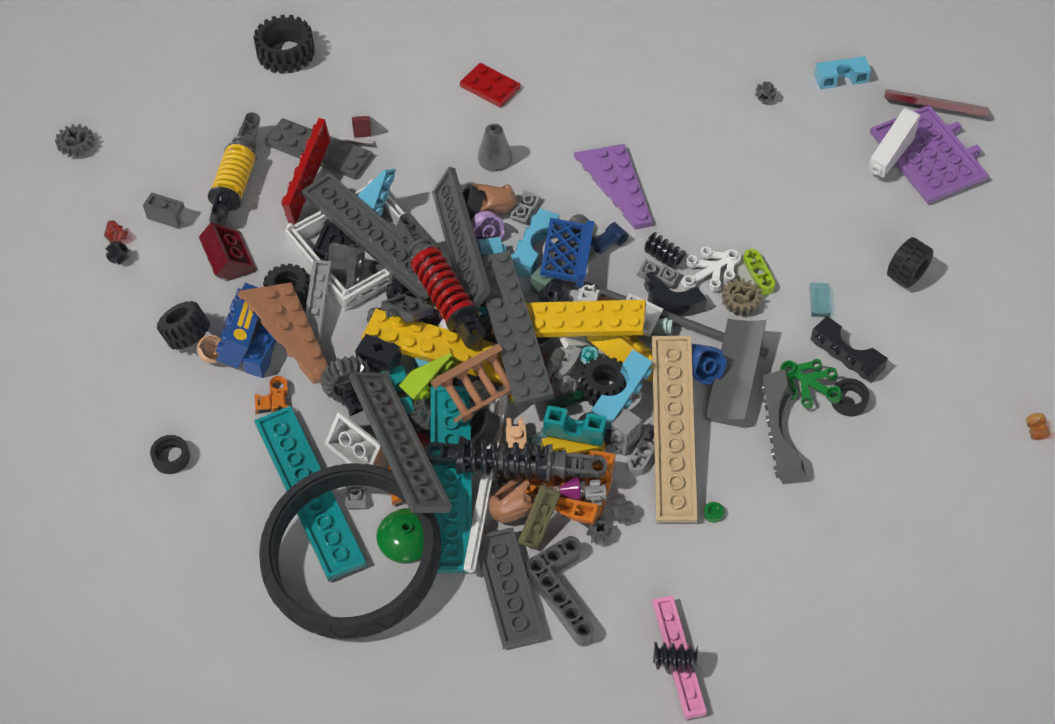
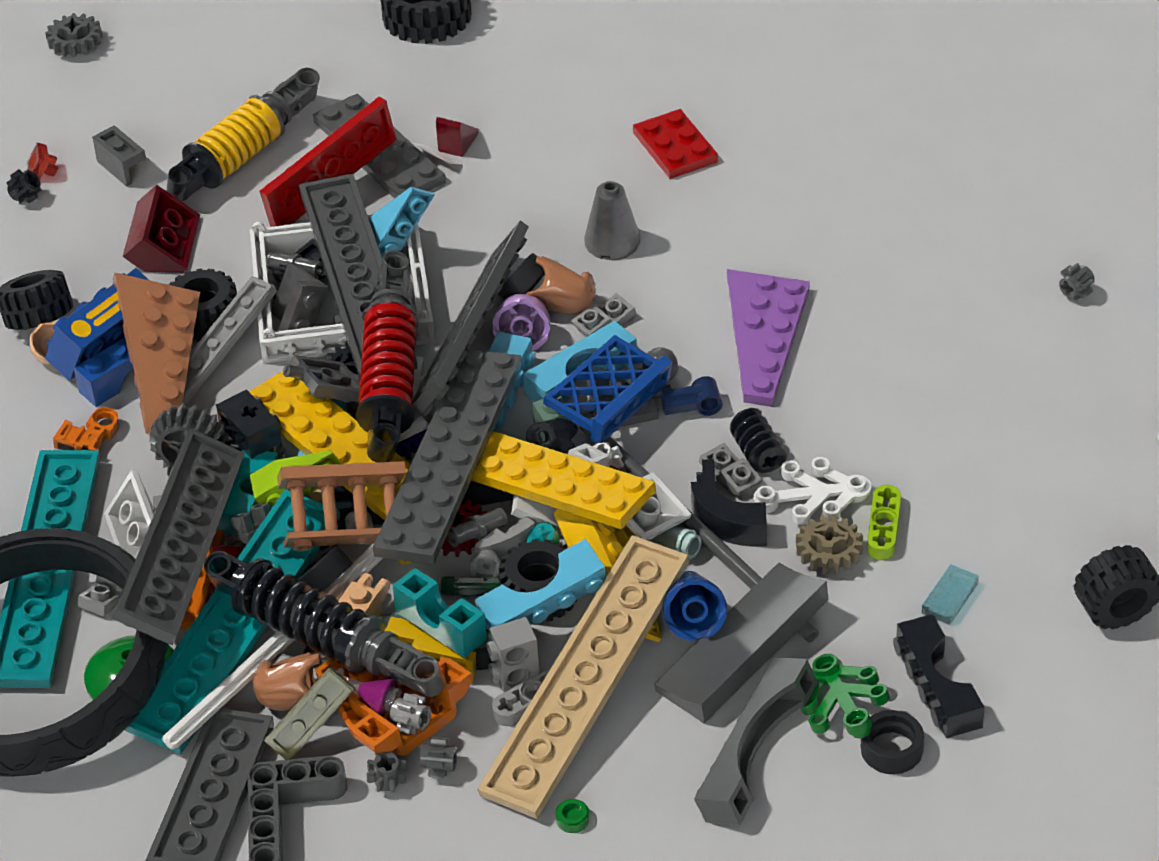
camera: 30 degrees right, 10 degrees down
(324, 243) = (280, 262): none -> dark grey pin

